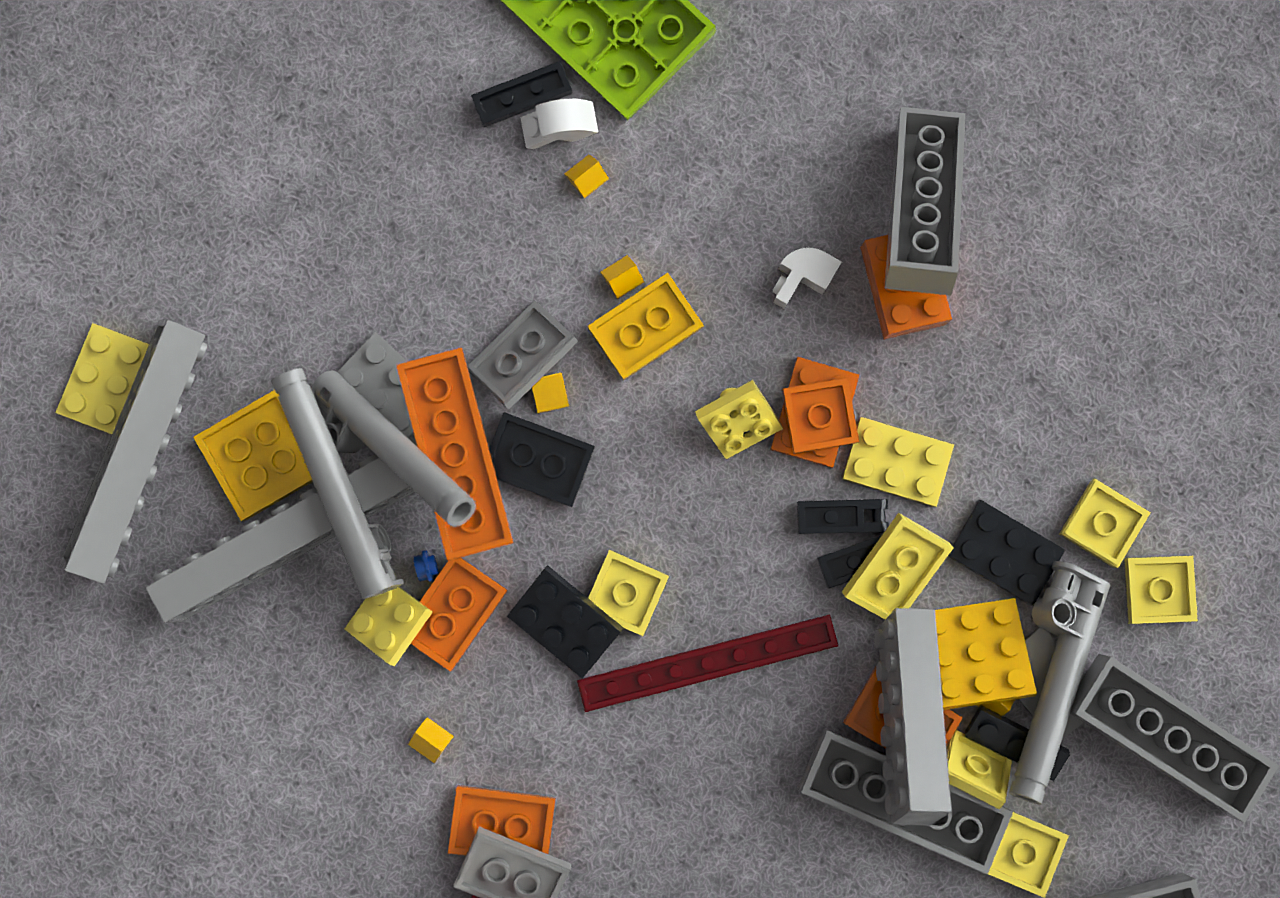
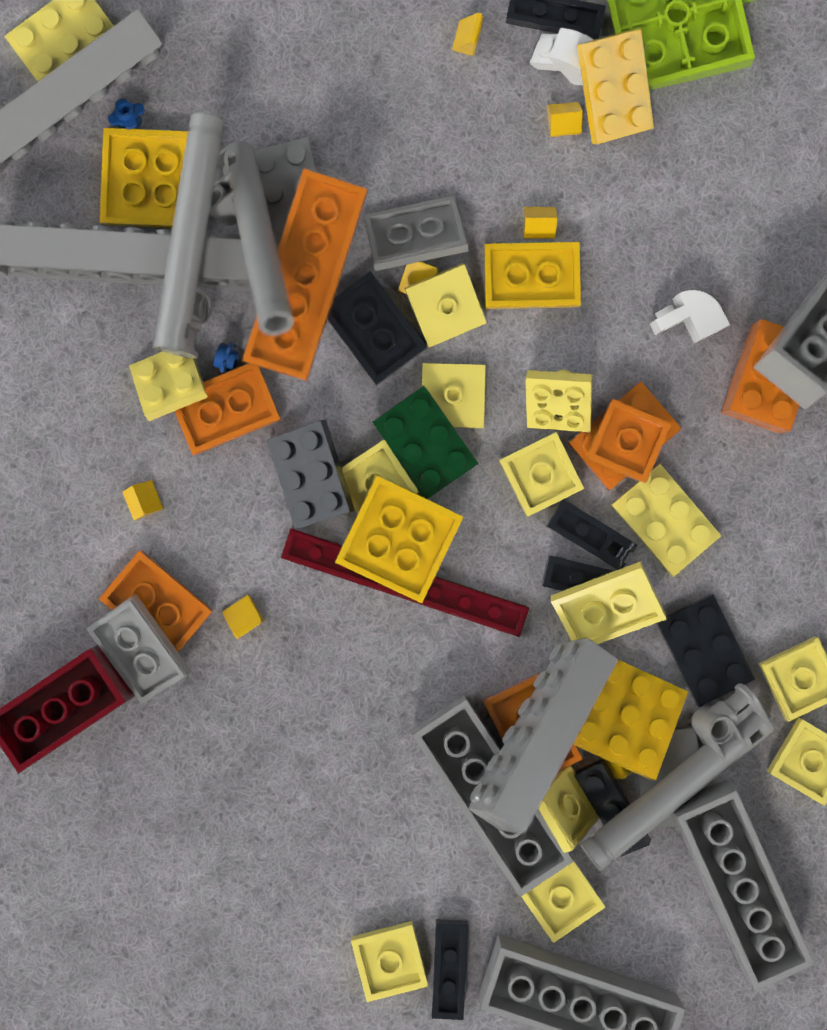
camera: 30 degrees right, 5 degrees up
(210, 417) = (126, 114): none -> blue plate
(458, 157) = (468, 34): none -> yellow slope
(585, 786) = (243, 616): none -> yellow slope
(587, 399) = (445, 305): none -> light yellow plate
(613, 124) = (615, 86): none -> yellow plate
(644, 473) = (458, 392): none -> light yellow plate
(646, 529) = (425, 442): none -> dark green plate
(678, 628) = (399, 539): none -> yellow plate
(764, 492) = (541, 474): none -> light yellow plate

